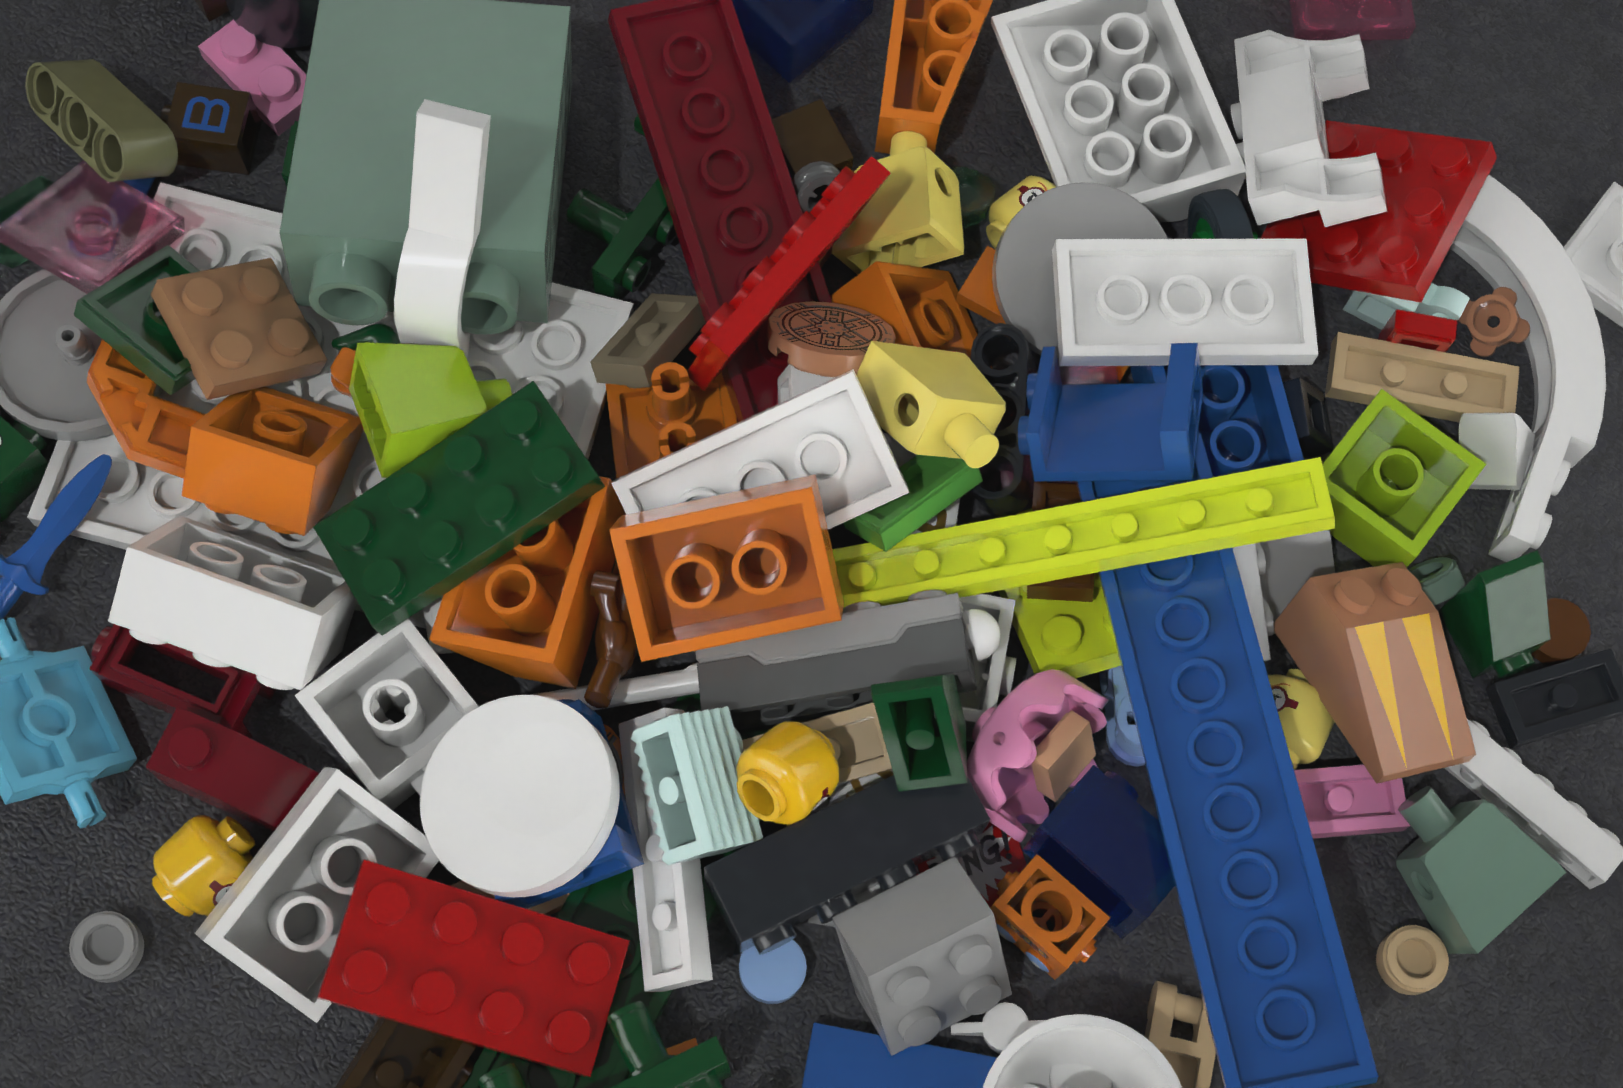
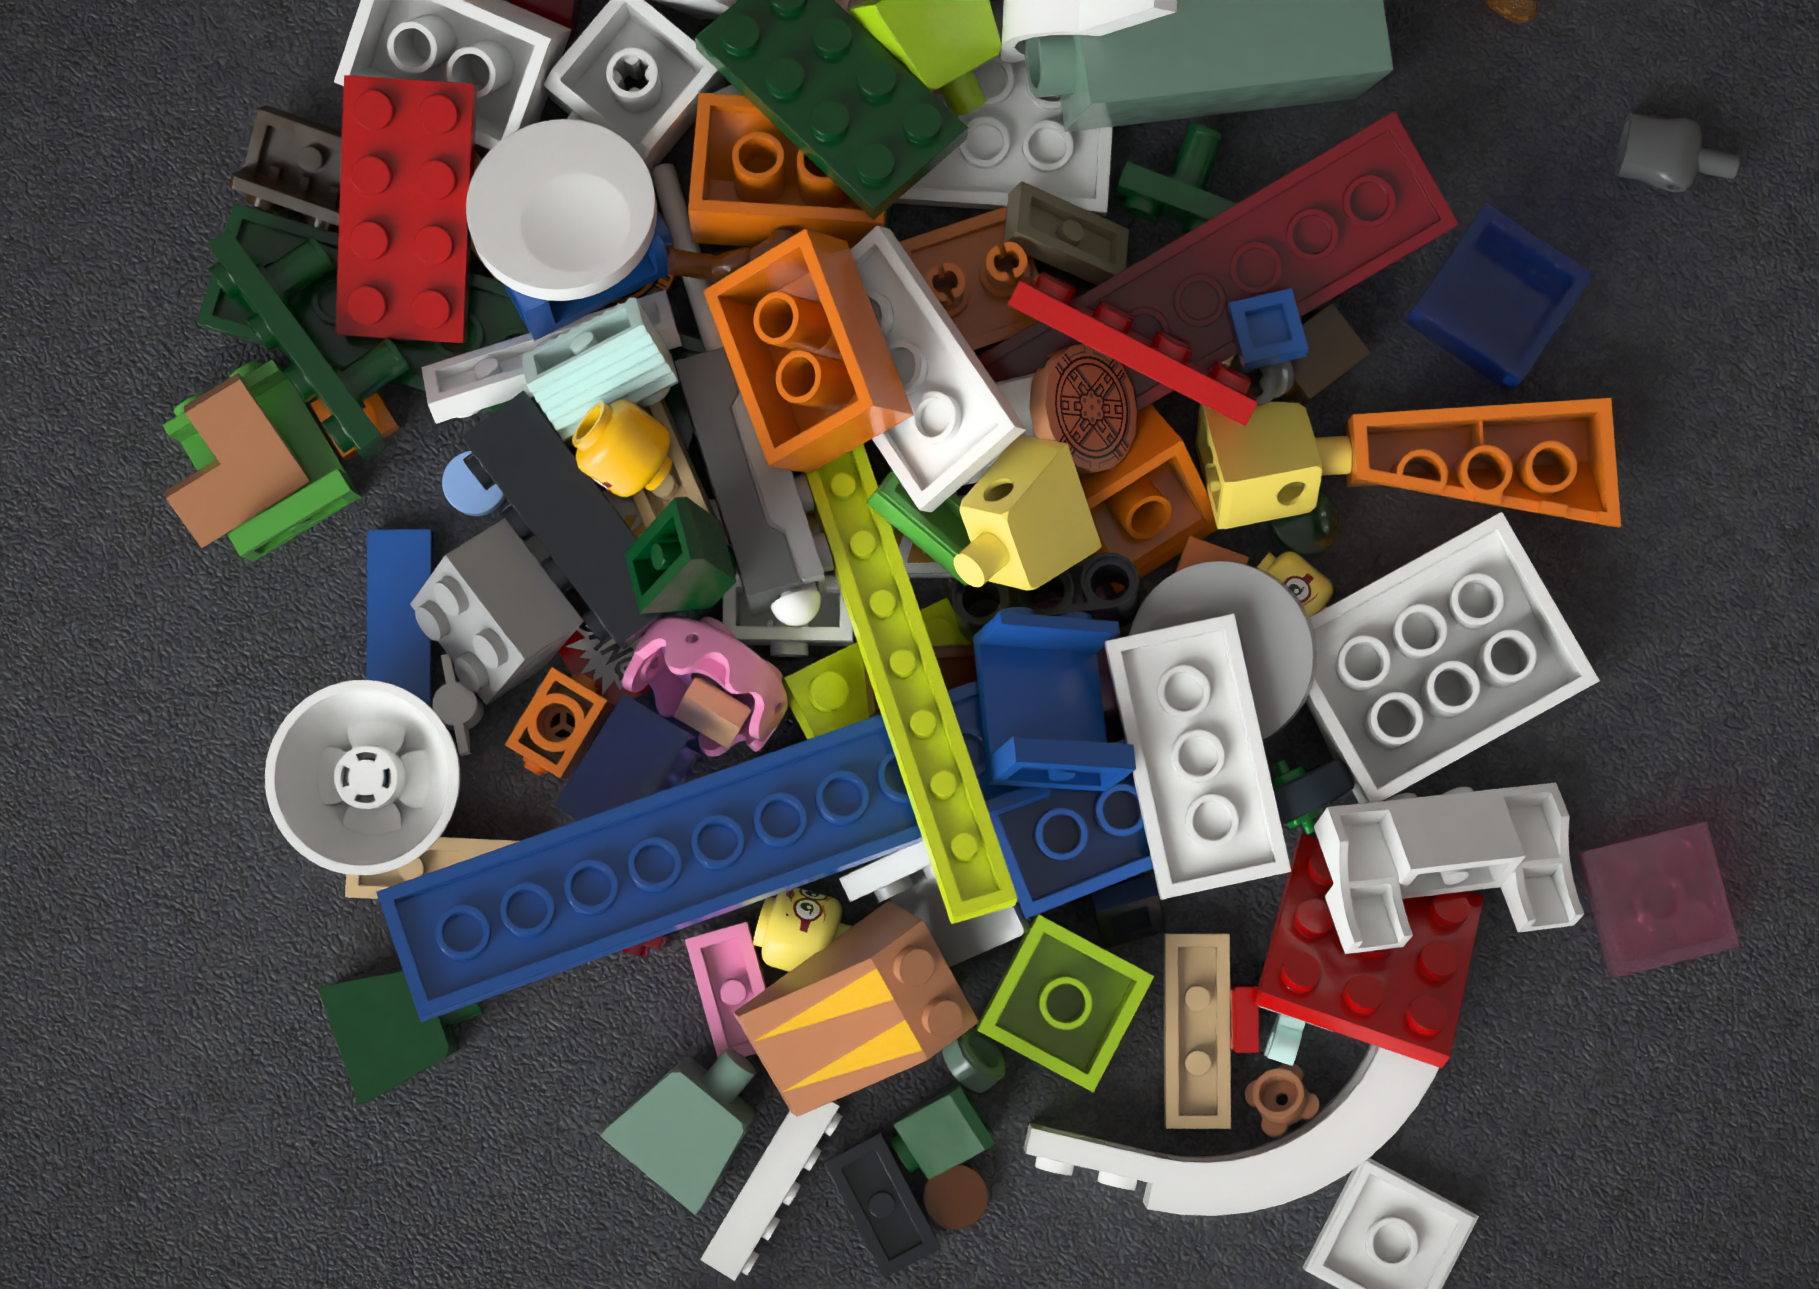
camera: 90 degrees right, 15 degrees up
(789, 162) = (1267, 329): none -> blue plate
(1412, 960) = (597, 1084): tan tile -> none
(1501, 443) = (1129, 1111): white slope -> none

